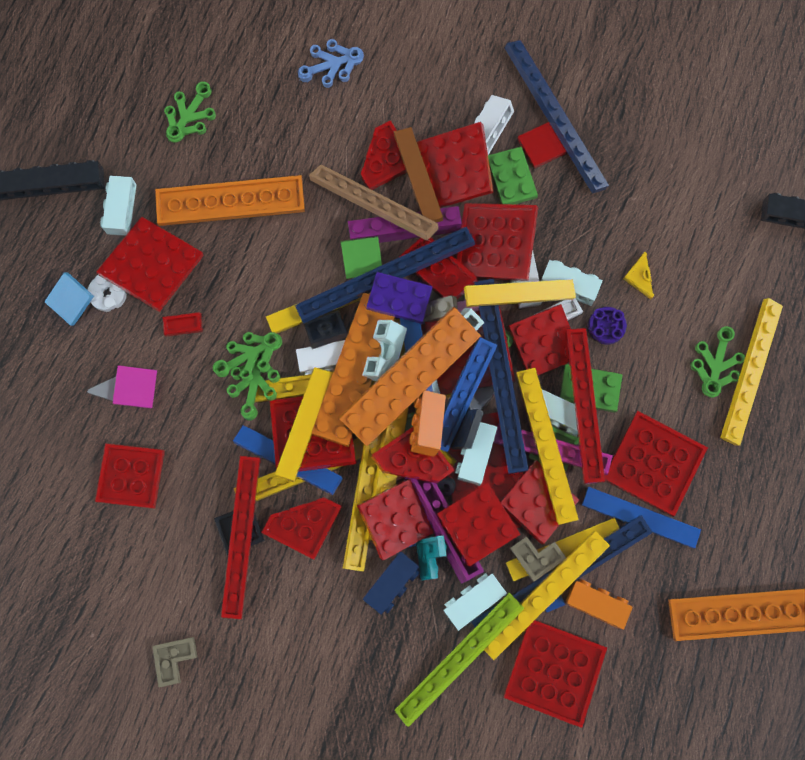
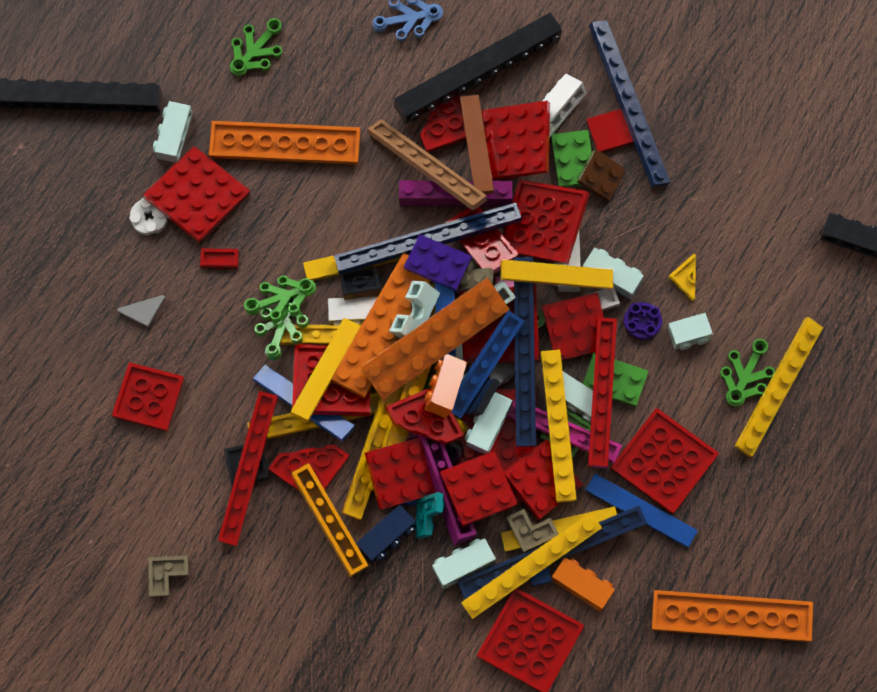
camera: 10 degrees right, 5 degrees down
(69, 298) = (111, 217): dark azure tile -> none
(134, 387) = (164, 312): dark pink tile -> none
(332, 580) = (329, 520): none -> light orange brick
(360, 255) = (407, 216): bright green tile -> none
(405, 102) = (477, 68): none -> black brick
(459, 659) = (439, 612): lime tile -> none
(542, 188) = (601, 175): none -> reddish brown plate
(656, 329) = (690, 331): none -> light aqua brick

